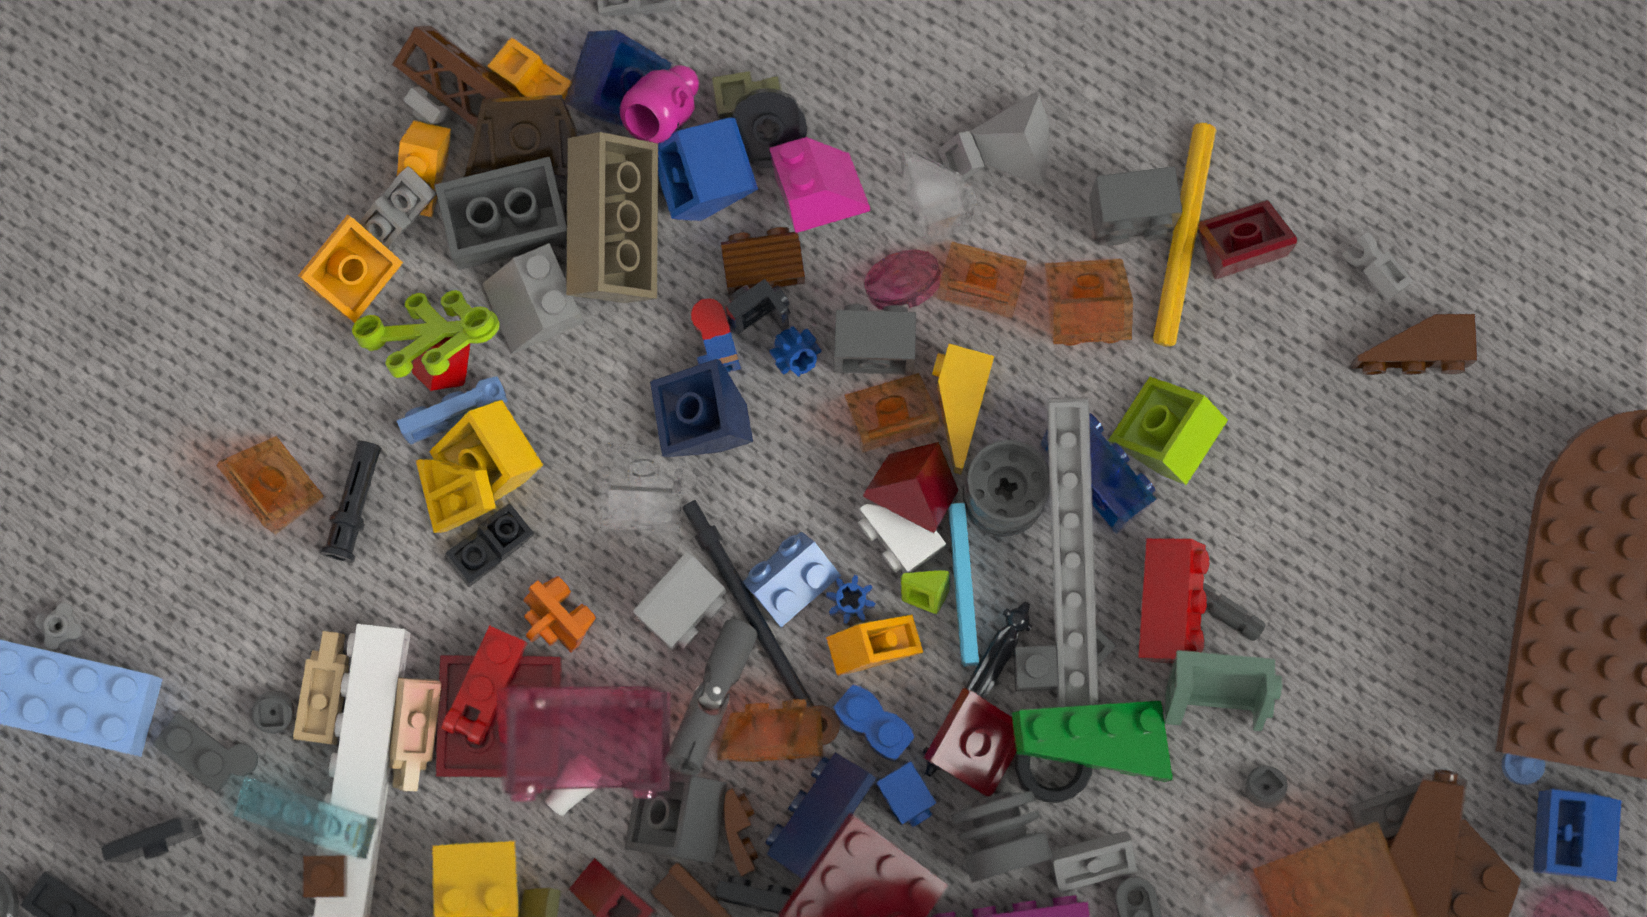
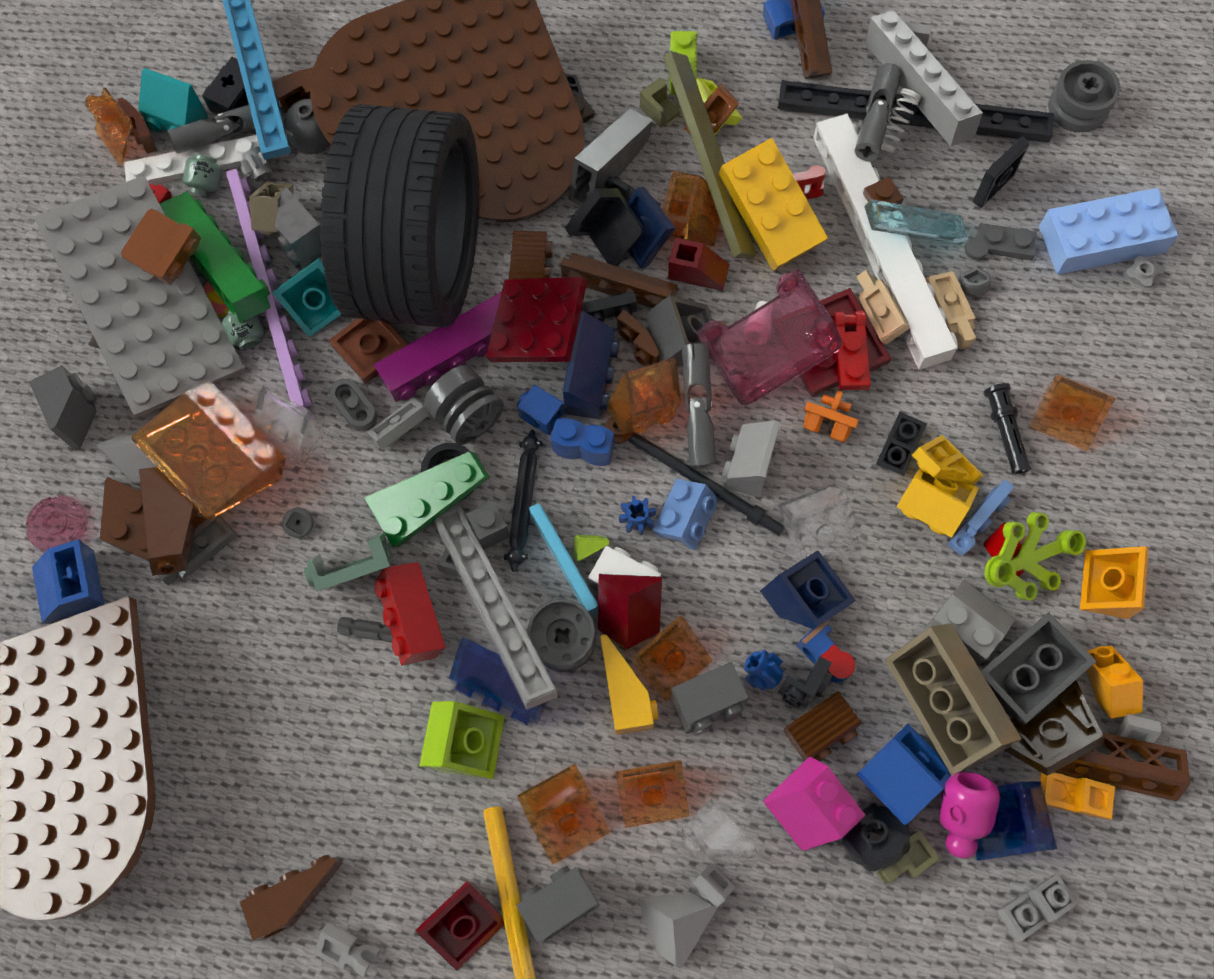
camera: 160 degrees right, 10 degrees down
(397, 207) = (1110, 638): light grey slope -> none
(874, 644) = (606, 492): light orange slope -> none
(903, 279) = (711, 759): clear pink tile -> none
(974, 743) = (509, 458): dark red plate -> none

